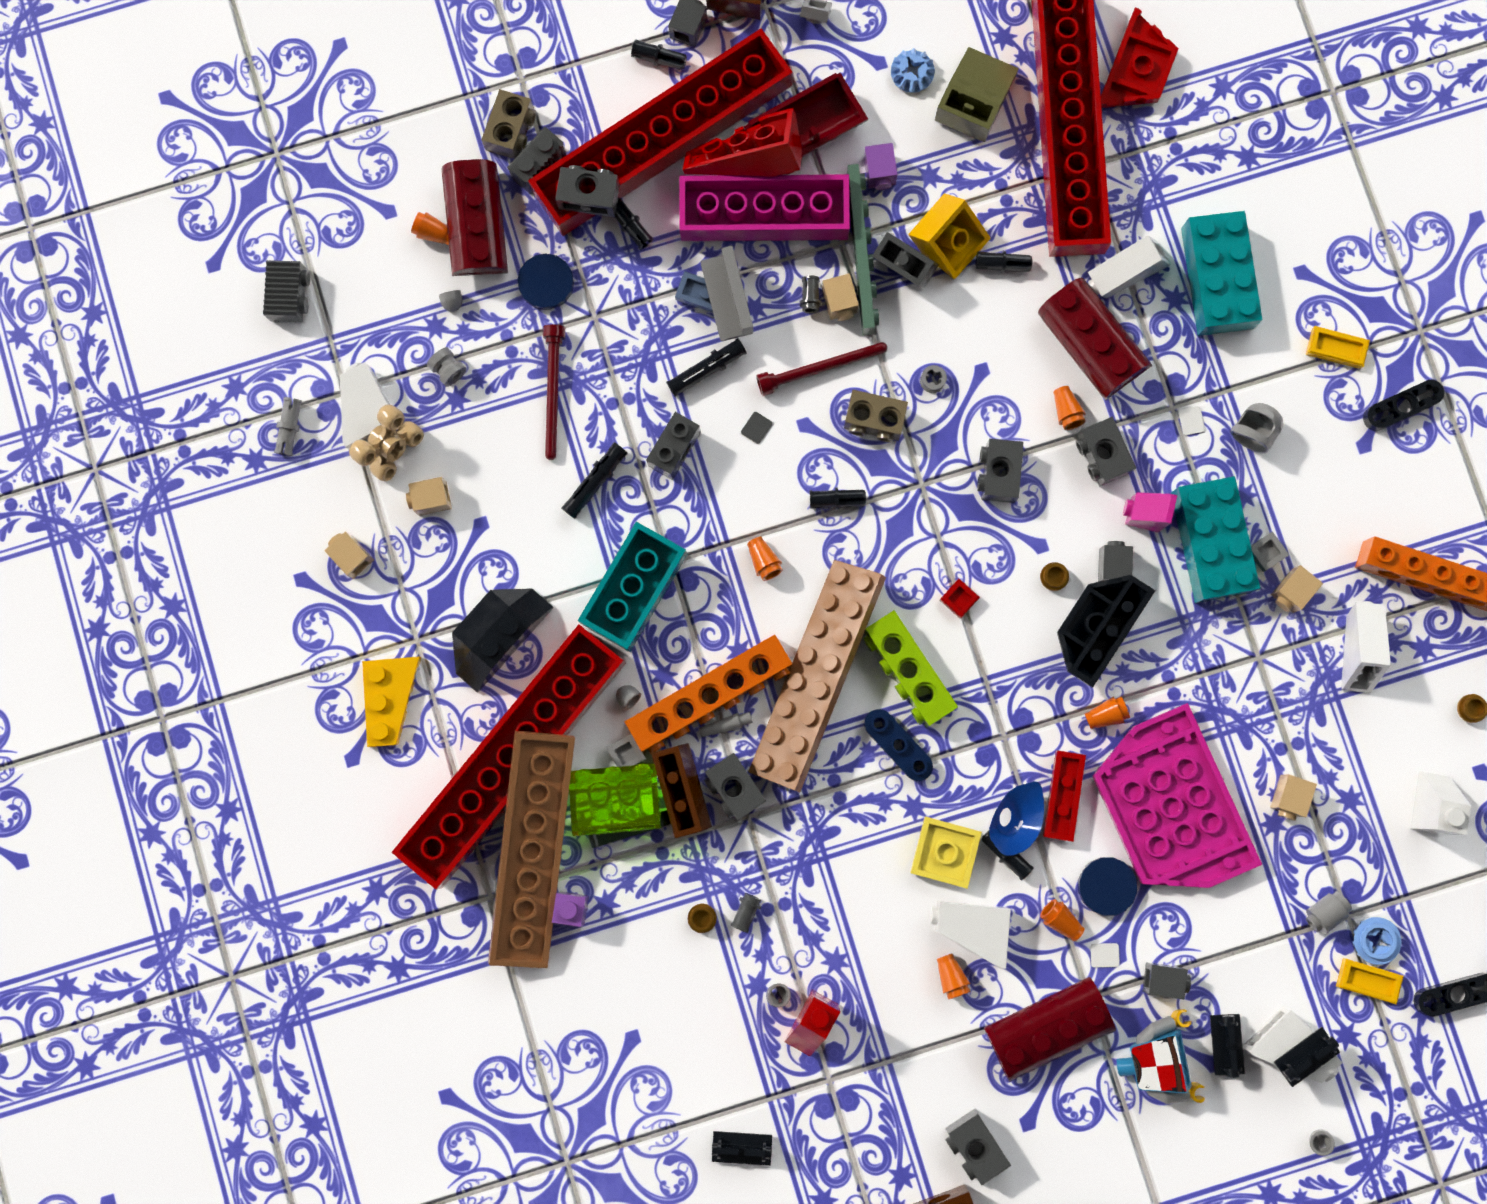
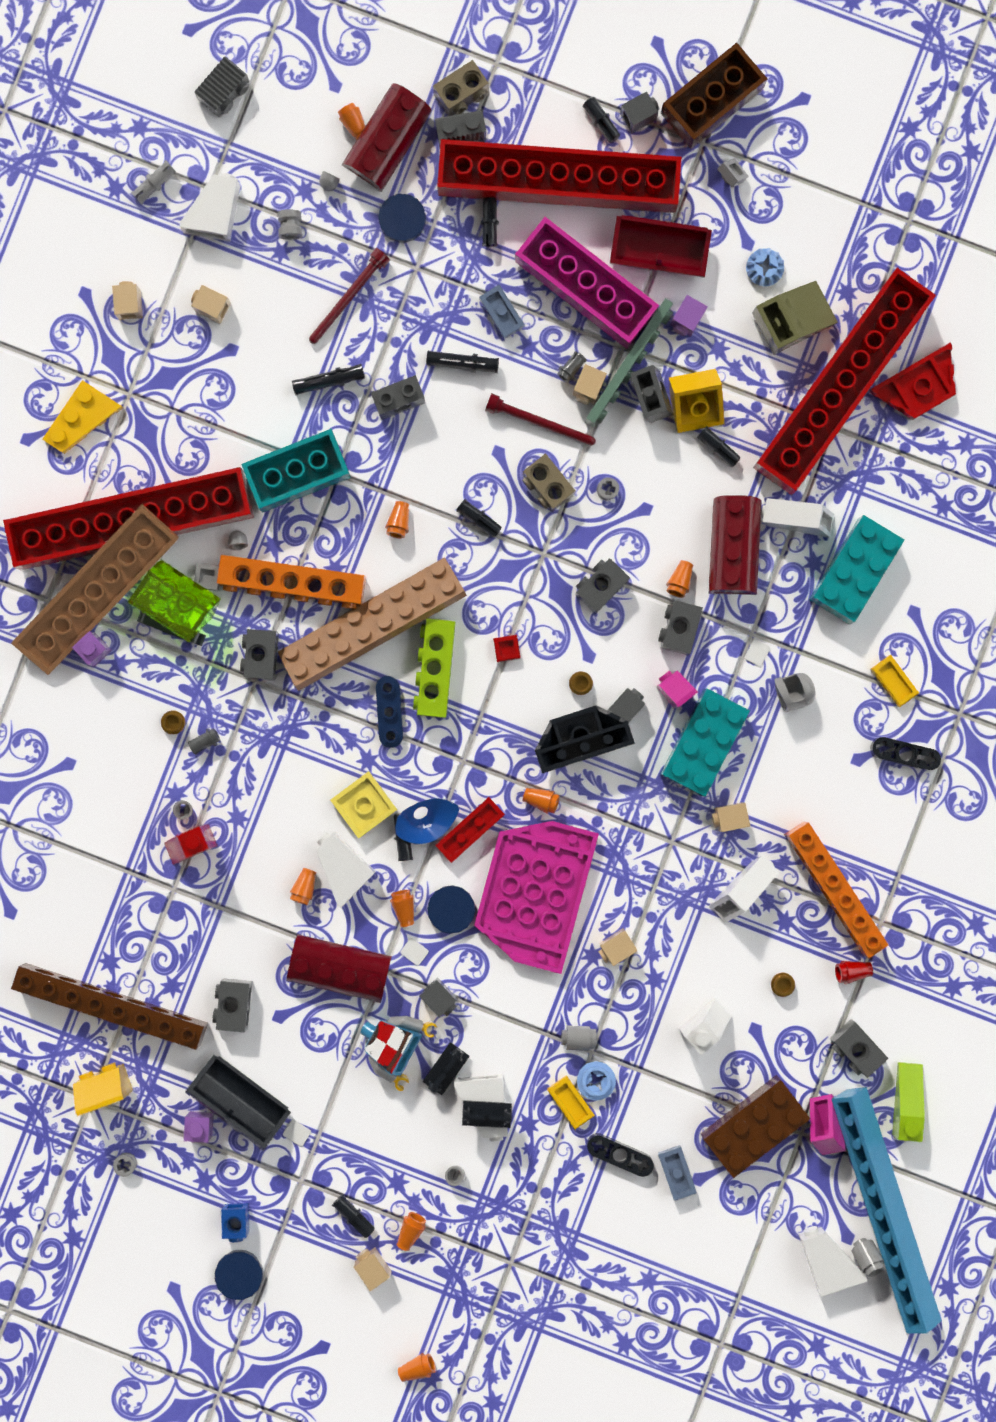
camera: 30 degrees right, 5 degrees up
(386, 443) = (208, 245): tan gear -> none
(495, 632) = (184, 429): black wedge -> none
(599, 202) = (476, 192): dark grey brick -> none
(681, 790) = (223, 629): reddish brown brick -> none
(726, 724) = (288, 610): light grey animal -> none
(727, 295) = (513, 323): light grey panel -> none
(742, 1148) = (83, 887): black hinge -> none
(756, 427) = (464, 428): dark grey sticker -> none
(762, 150) = (611, 241): red wedge -> none
(1268, 551) = (733, 778): light grey plate -> none

